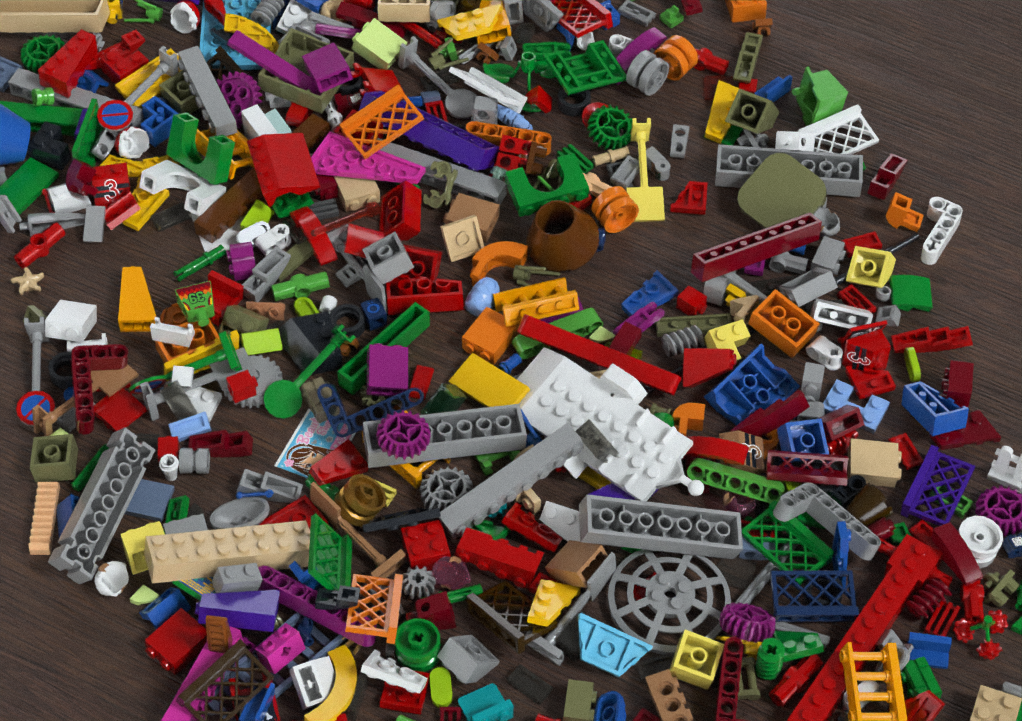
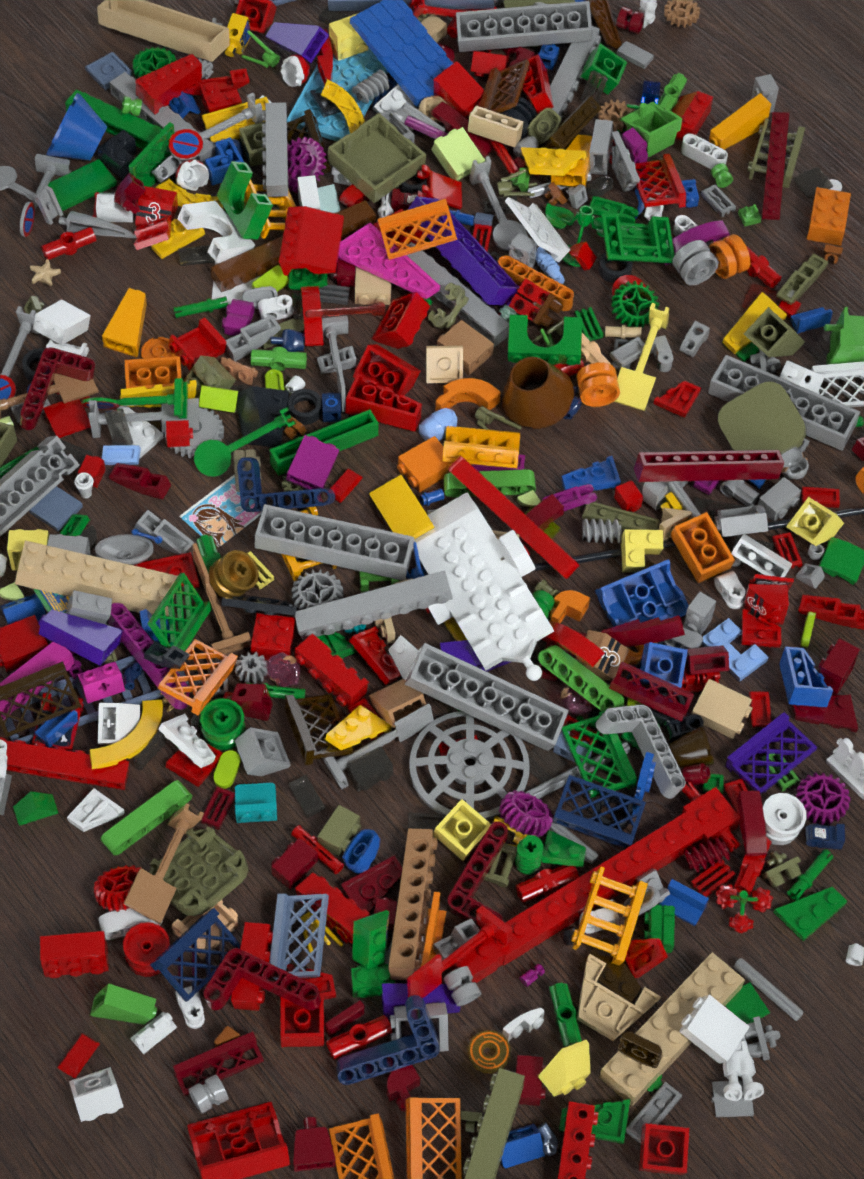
camera: 20 degrees right, 5 degrees up
(94, 224) = (124, 239): light grey tile -> none
(172, 334) = (139, 364): white hinge -> none
(183, 375) = (131, 406): white tile -> none
(194, 460) = (105, 485): light grey wheel -> none
(196, 302) = (174, 343): bright green torso -> none
(218, 637) = (47, 649): dark orange slope -> none
(271, 62) = (346, 142): magenta tile -> none
(303, 264) = (291, 340): none -> dark blue piece
(327, 67) = (392, 161): magenta brick -> none
(339, 464) = (231, 535): red wing -> none
(360, 238) = (352, 337): red slope -> none
(388, 258) = (362, 360): light grey brick -> none
(398, 434) = (304, 529): magenta gear -> none
(442, 9) = (530, 138): light grey tile -> none
(445, 399) = (355, 510): clear green slope -> none
(596, 441) = (464, 596): clear smoke hinge -> none
(608, 647) = (389, 789): medium azure wing -> none
(705, 364) = (607, 561): red slope -> none

